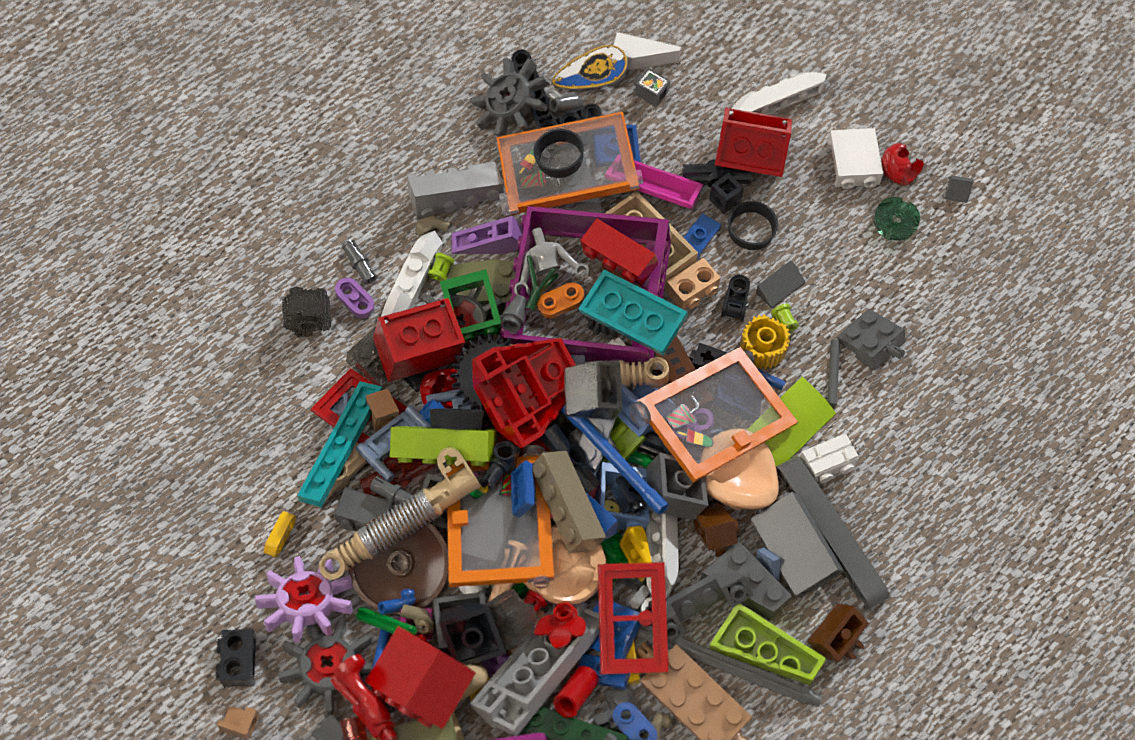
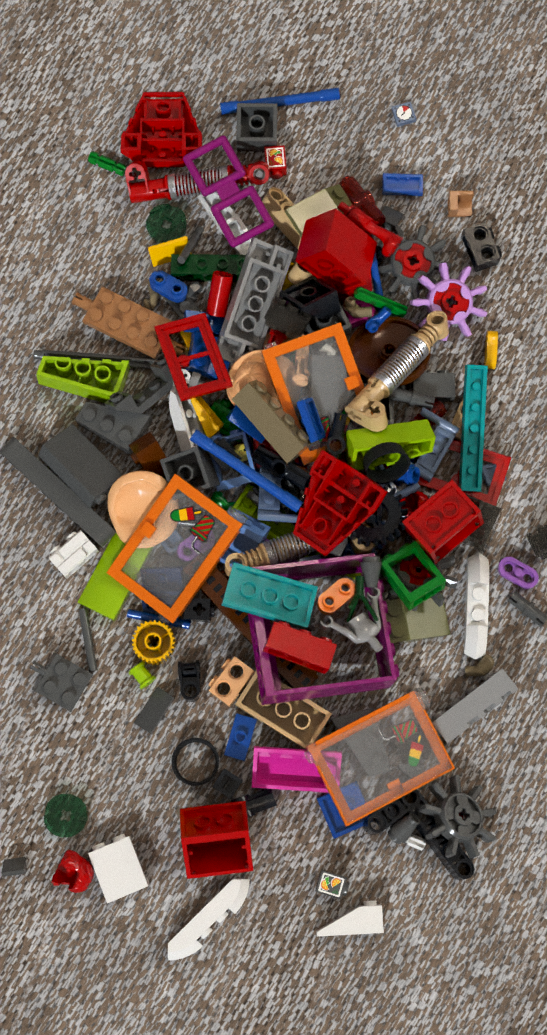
camera: 165 degrees right, 15 degrees up
(382, 408) = (452, 470): medium nougat panel -> none
(437, 273) = (456, 624): lime bush -> none
(489, 238) = (426, 667): medium lavender slope -> none
(554, 136) = (410, 756): black tyre -> none
(561, 625) = (246, 329): red plate -> none
(593, 69) = (392, 883): shield -> none
(593, 390) = (281, 516): clear smoke slope -> none
(769, 561) = (100, 444): sand blue tile -> none
(839, 633) = (32, 405): reddish brown brick -> none

